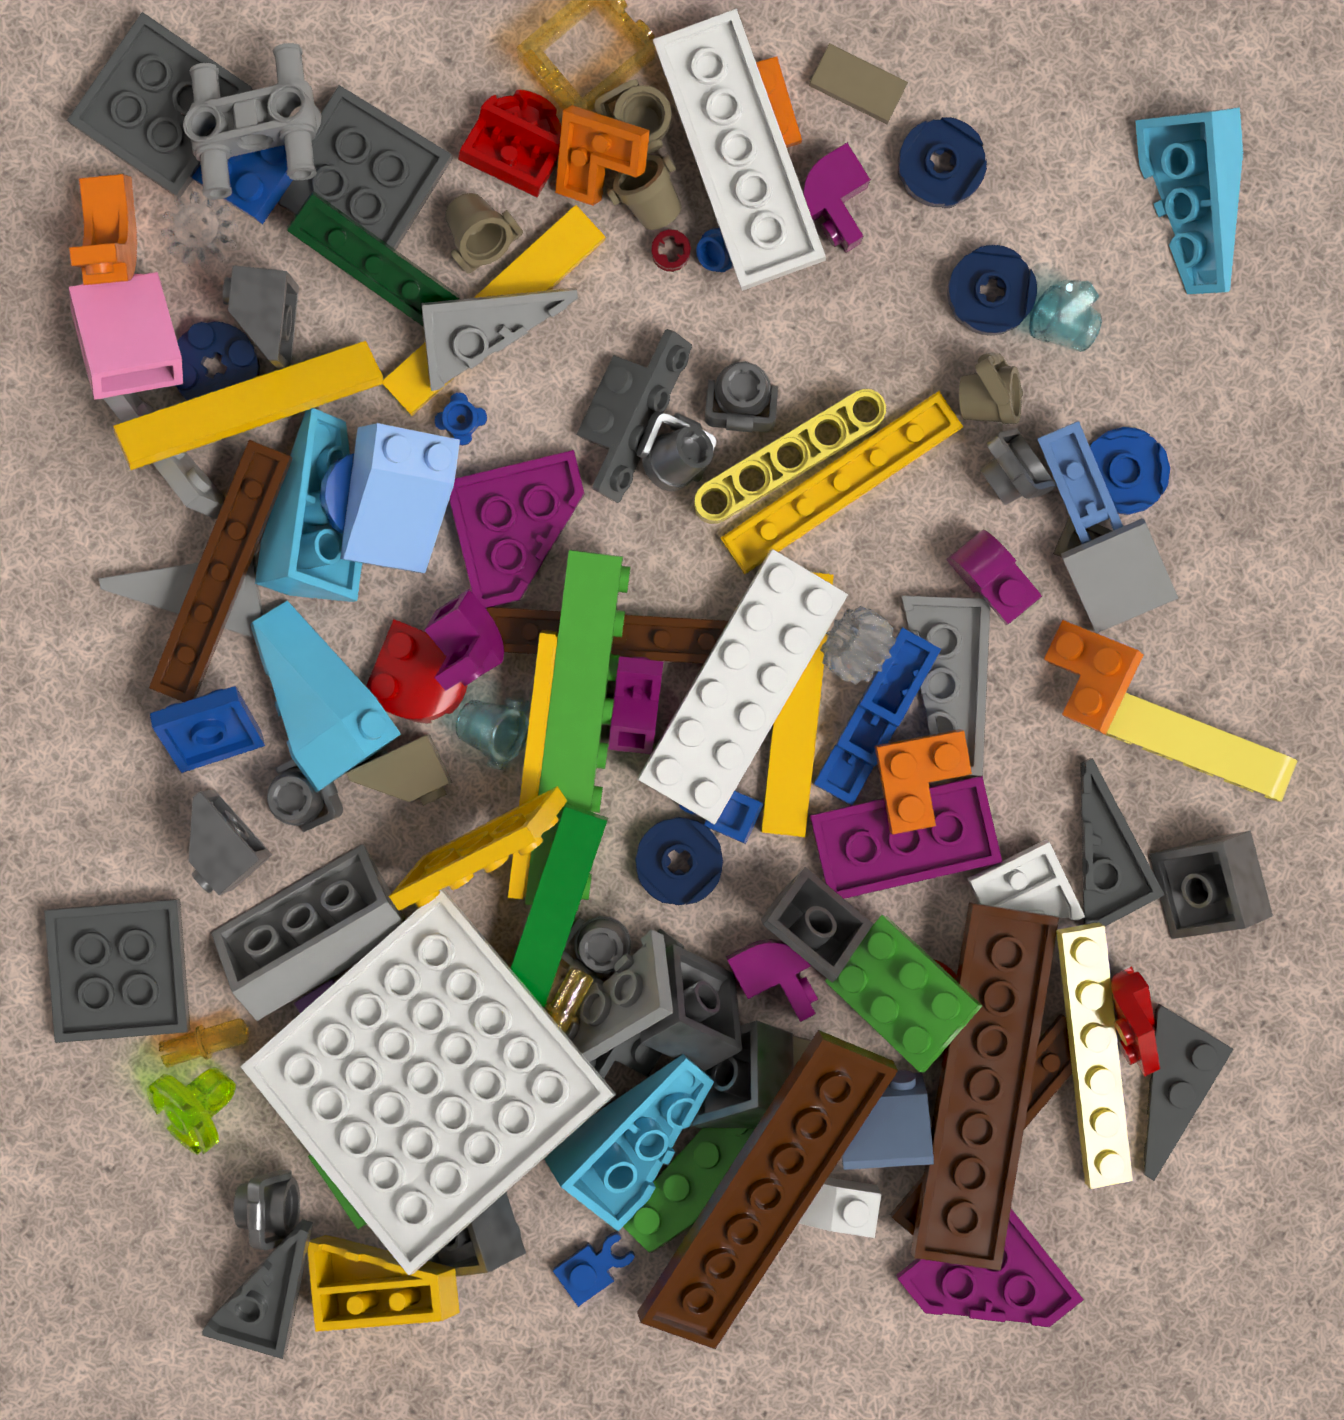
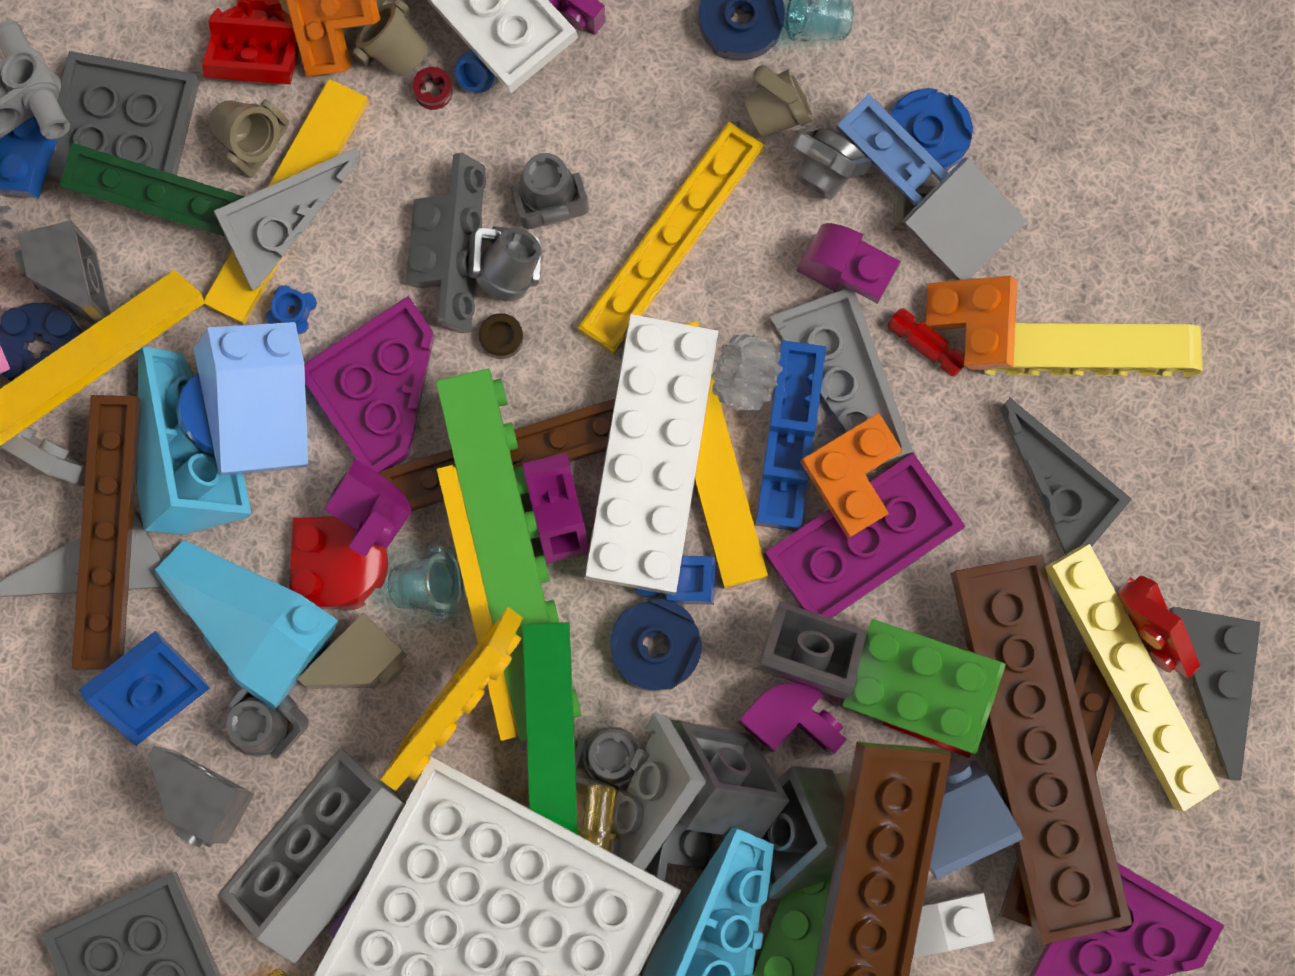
camera: 20 degrees left, 10 degrees down
(646, 518) = (501, 336): none -> dark brown tile
(802, 439) = (619, 209): light yellow beam -> none
(1028, 883) = (999, 534): white wing -> none
(1039, 674) = (927, 341): none -> red axle
(1212, 885) = (1172, 474): flat silver slope -> none

